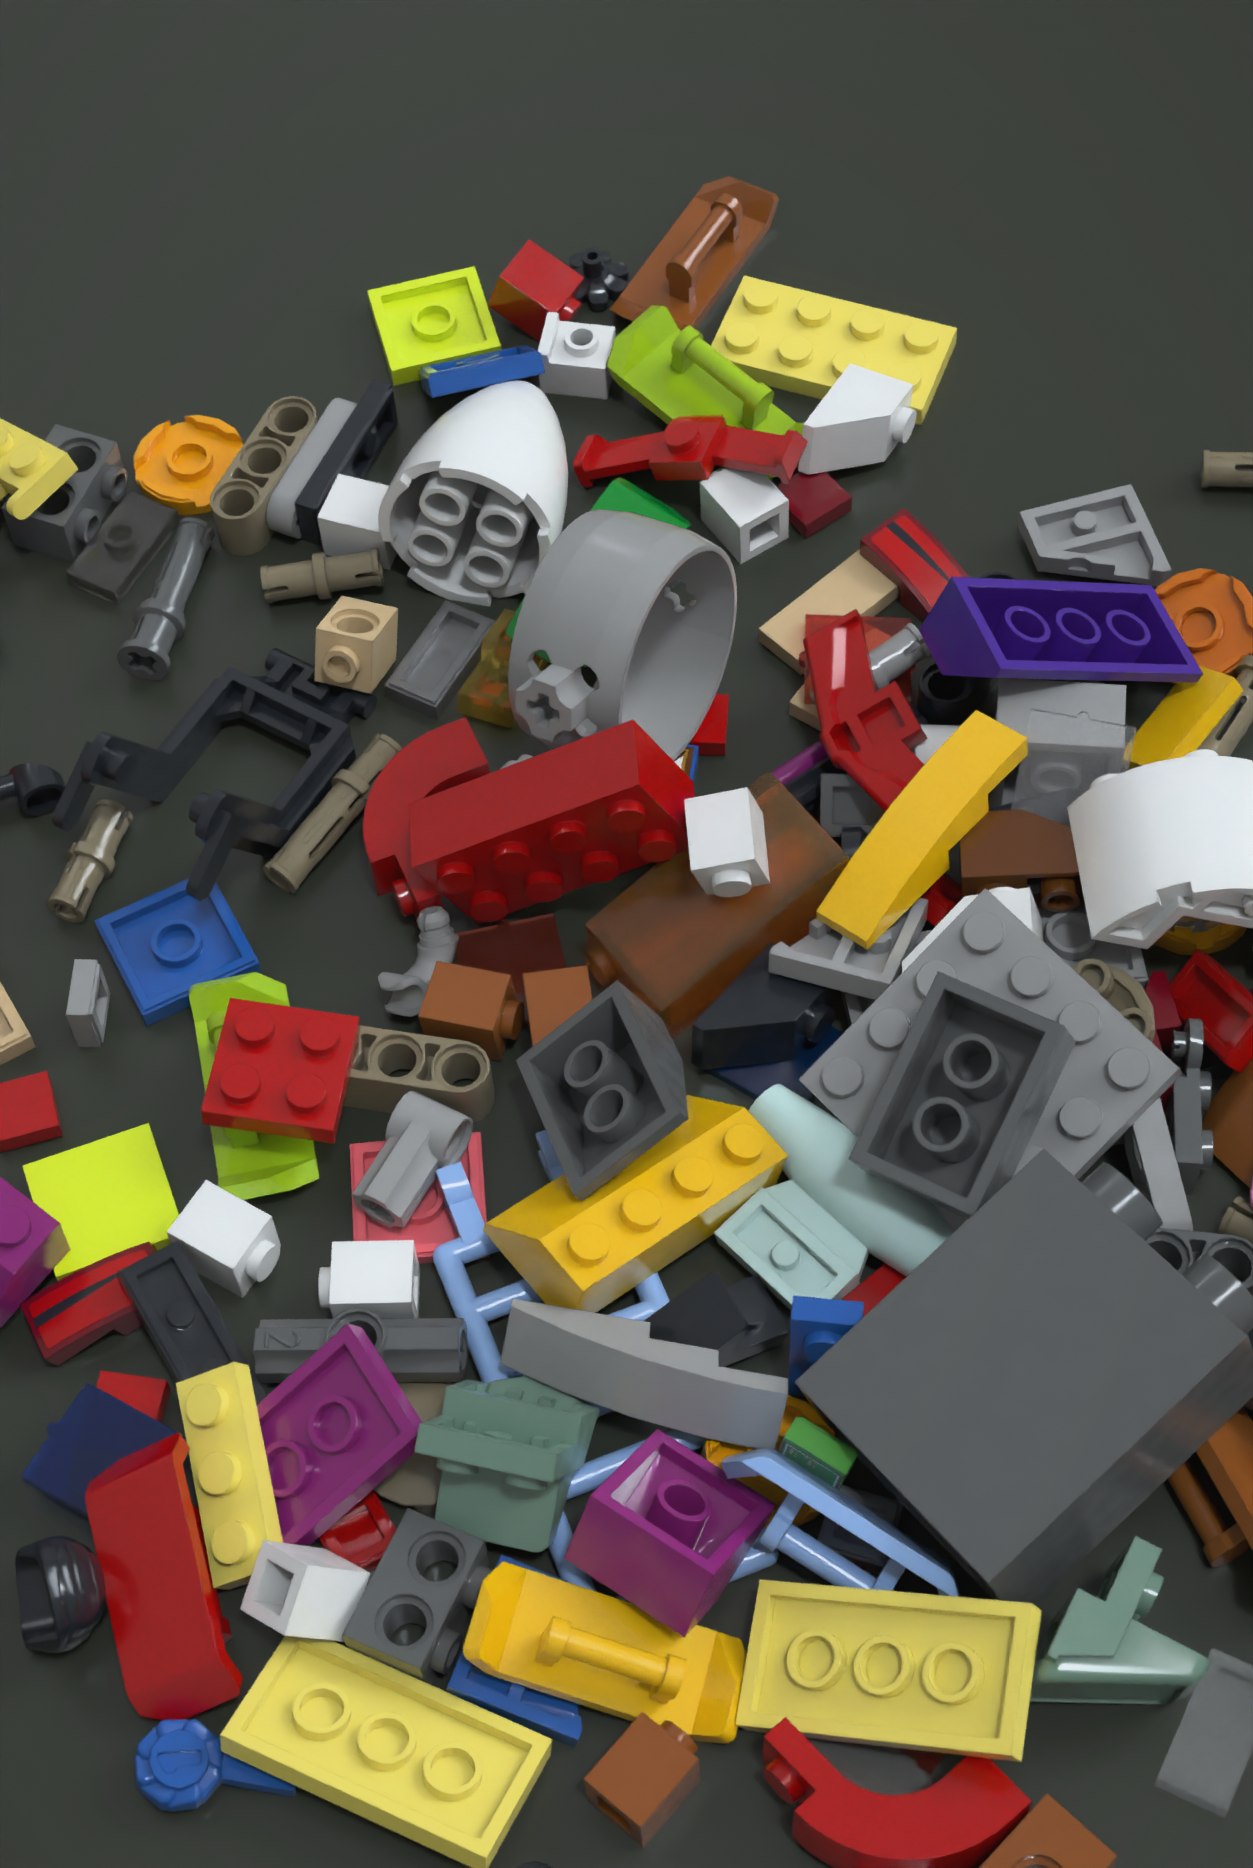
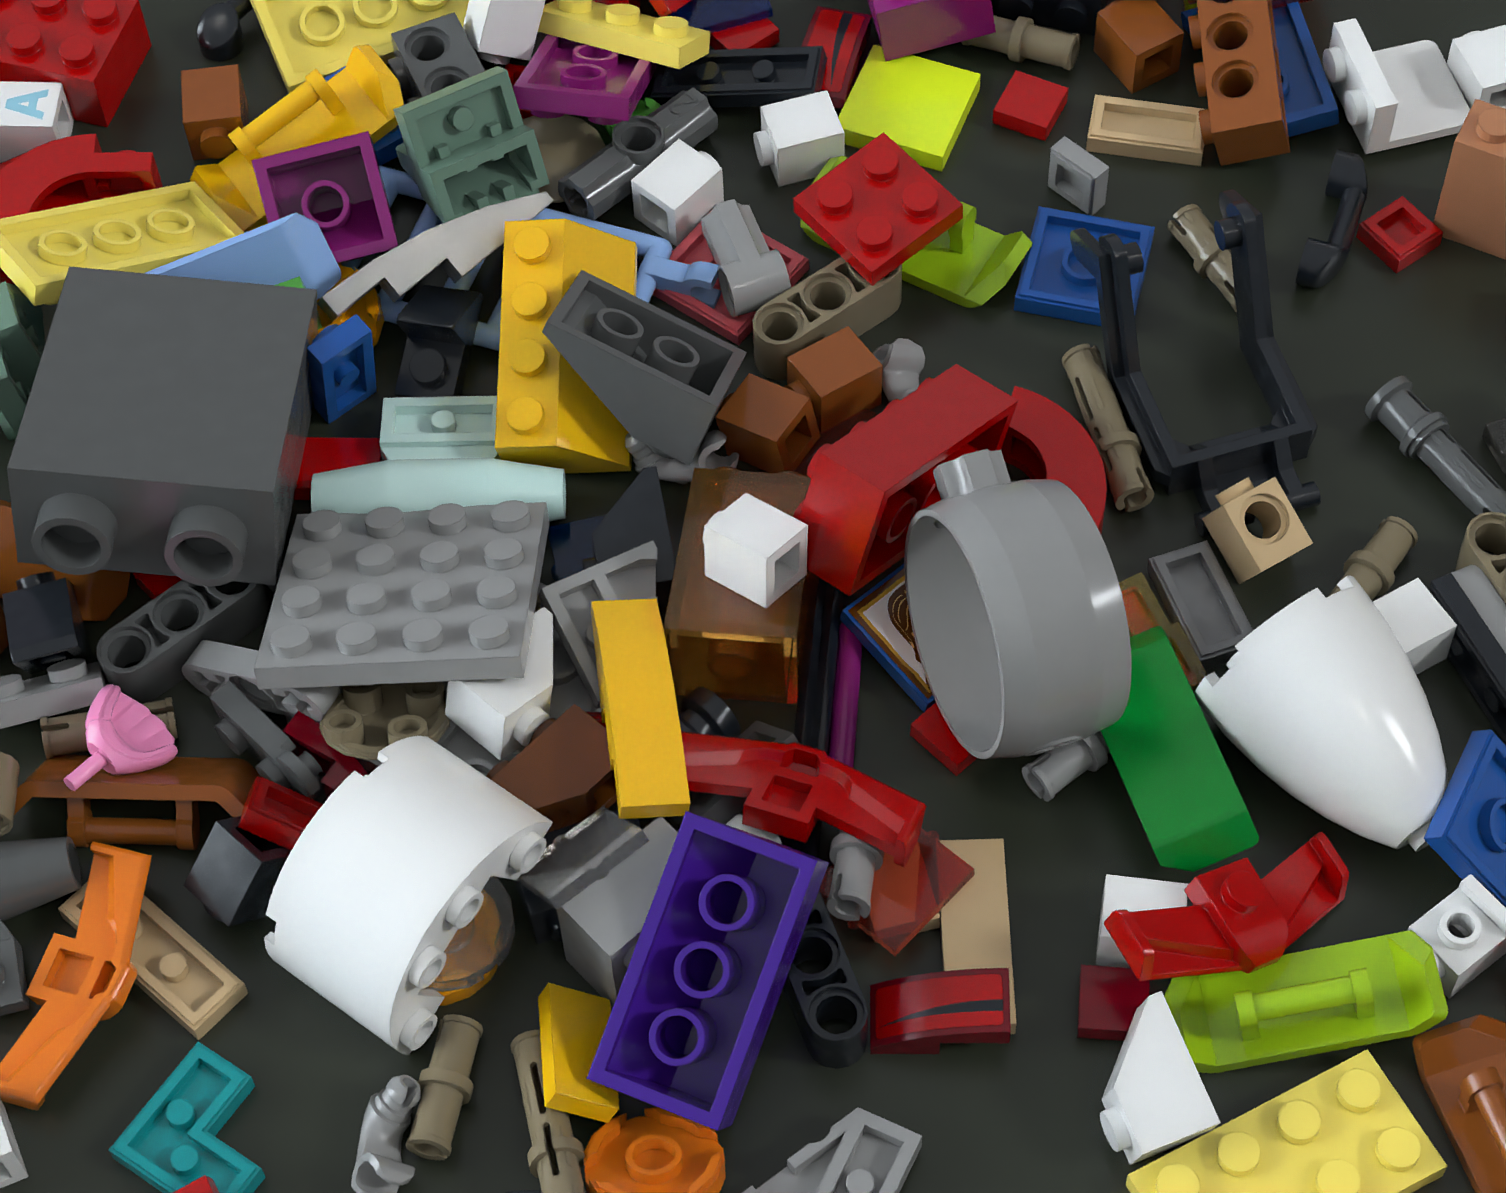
camera: 130 degrees right, 0 degrees up
(962, 1097) = (381, 512): dark grey brick -> none

